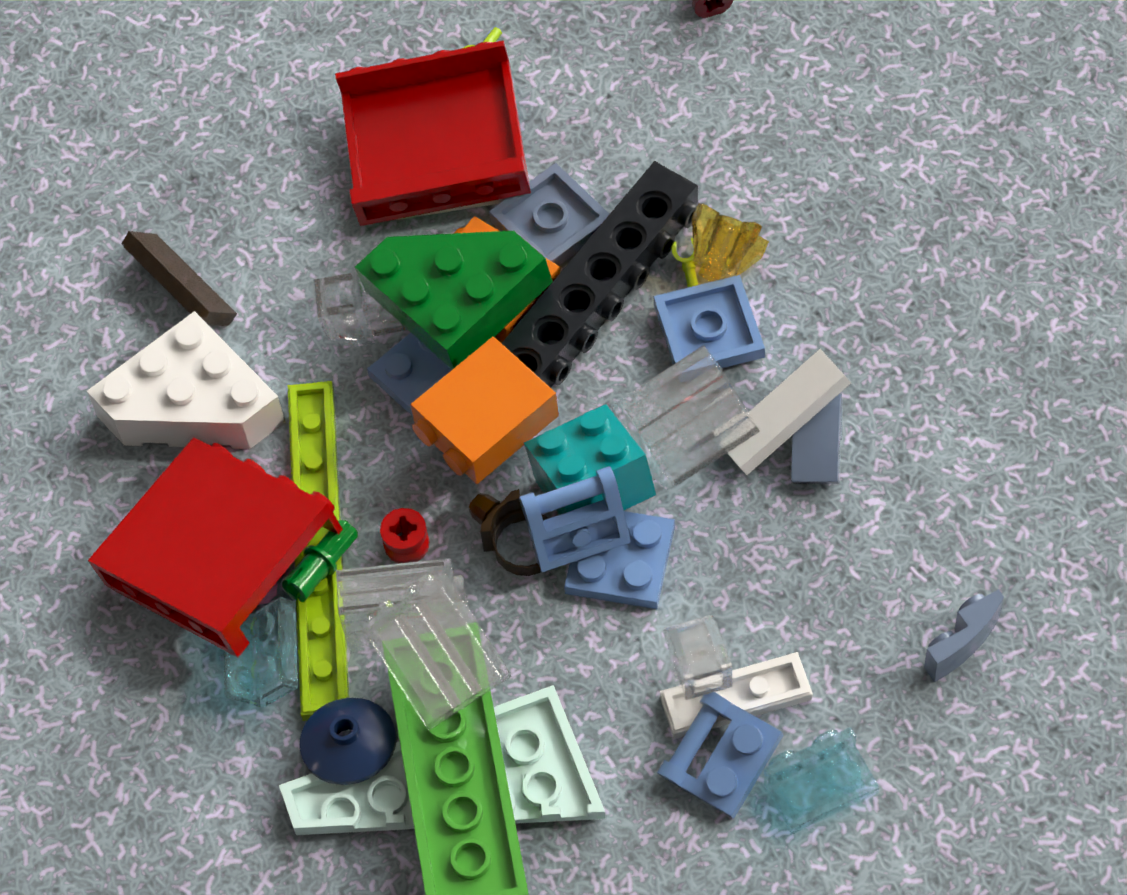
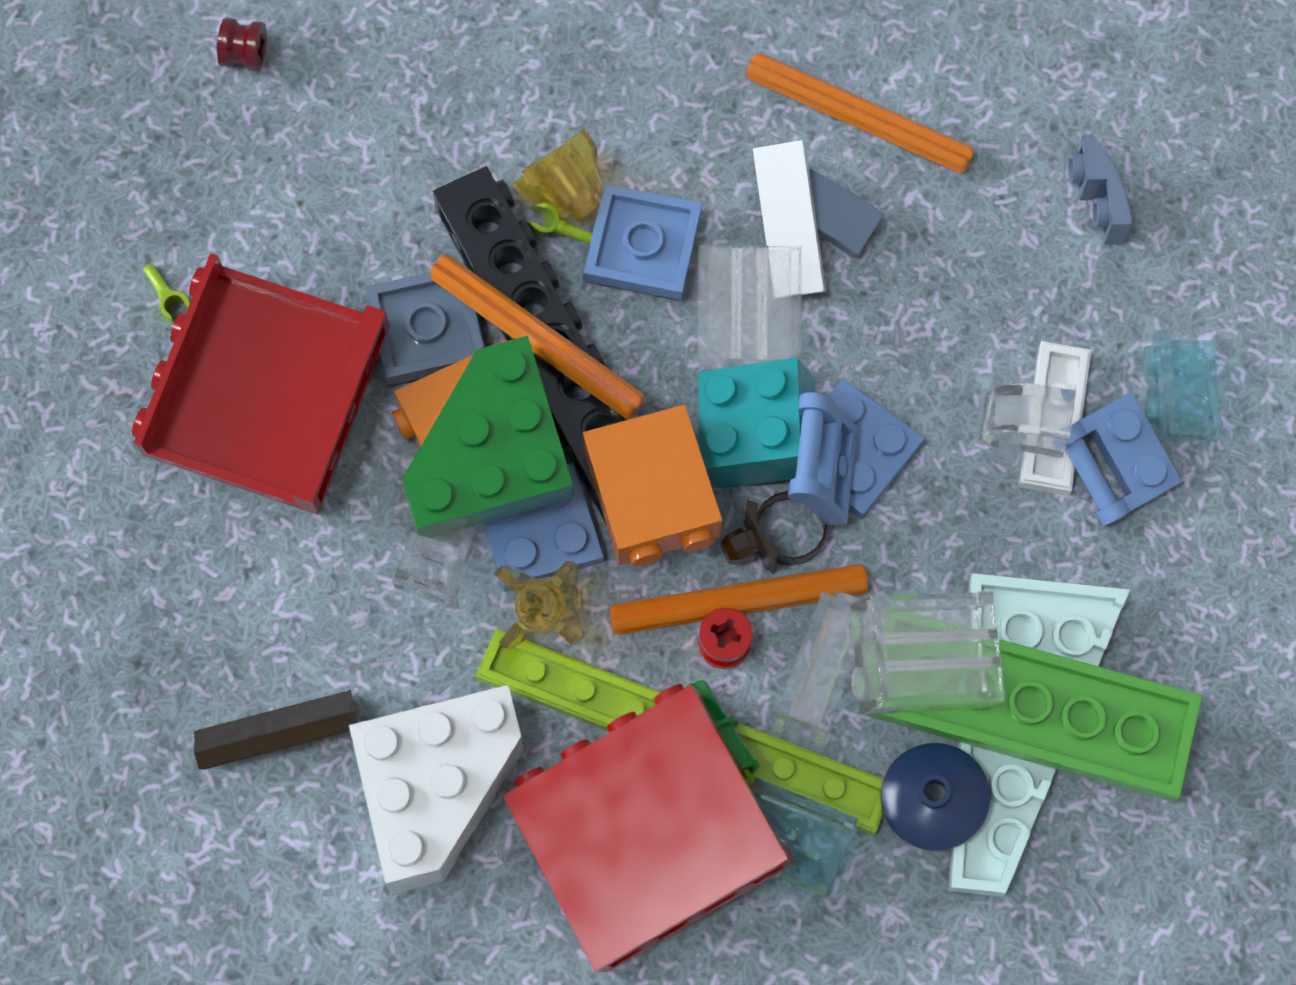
camera: 70 degrees left, 10 degrees up
(359, 394) = (544, 604): none -> clear yellow brick
(447, 535) = (743, 597): none -> orange axle
(568, 282) = (543, 339): none -> orange axle
(925, 429) = (860, 112): none -> orange axle

